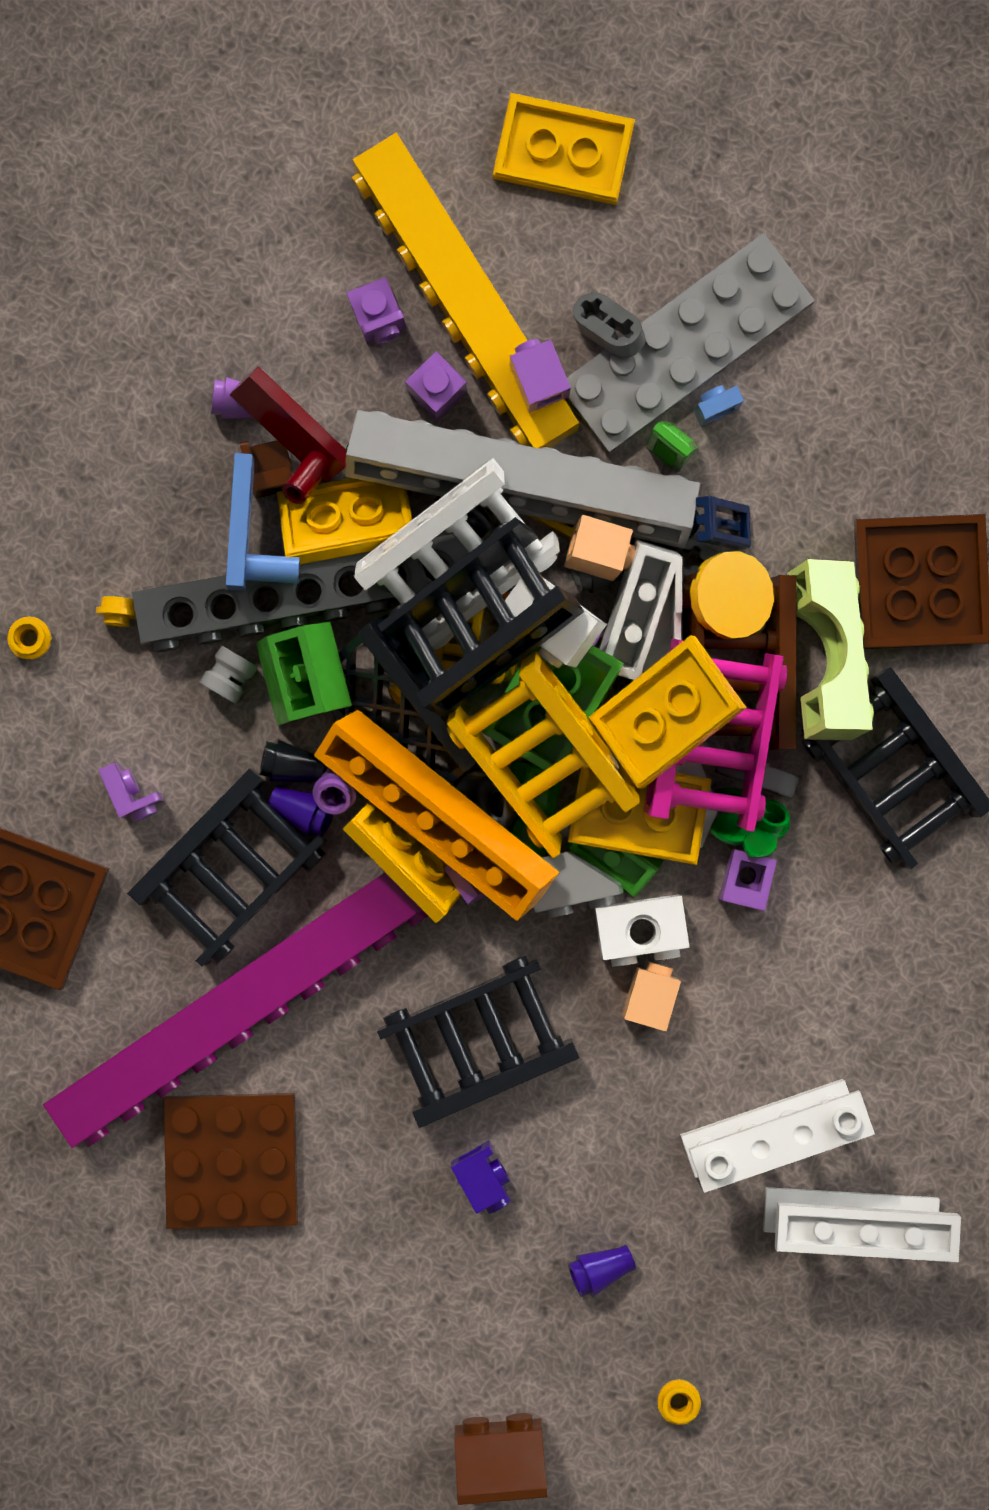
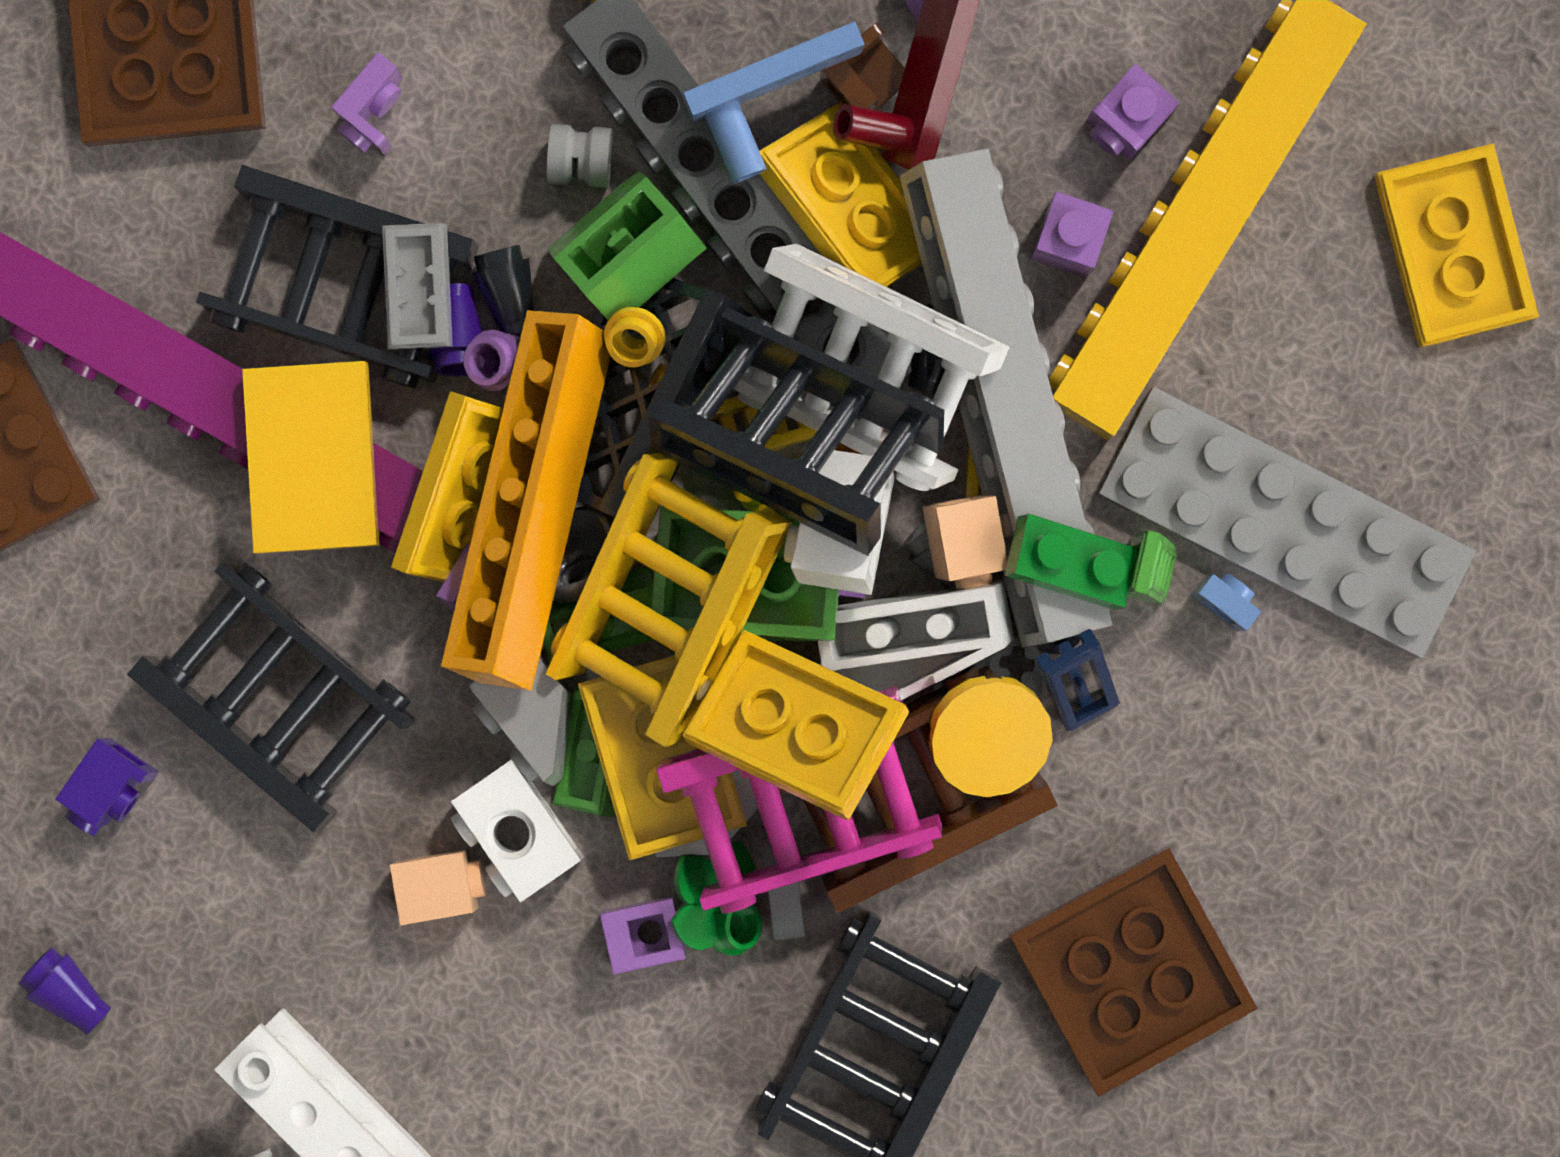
camera: 60 degrees right, 0 degrees up
(262, 818) = (417, 286): none -> light grey plate
(338, 941) = (310, 457): none -> yellow tile
(371, 703) = (625, 348): none -> yellow plate
(539, 374) = (1148, 354): medium lavender brick -> none
(613, 318) = (1271, 416): dark grey beam -> none
(648, 487) = (1071, 561): none -> green plate
(829, 603) = (1044, 864): yellowish green arch -> none

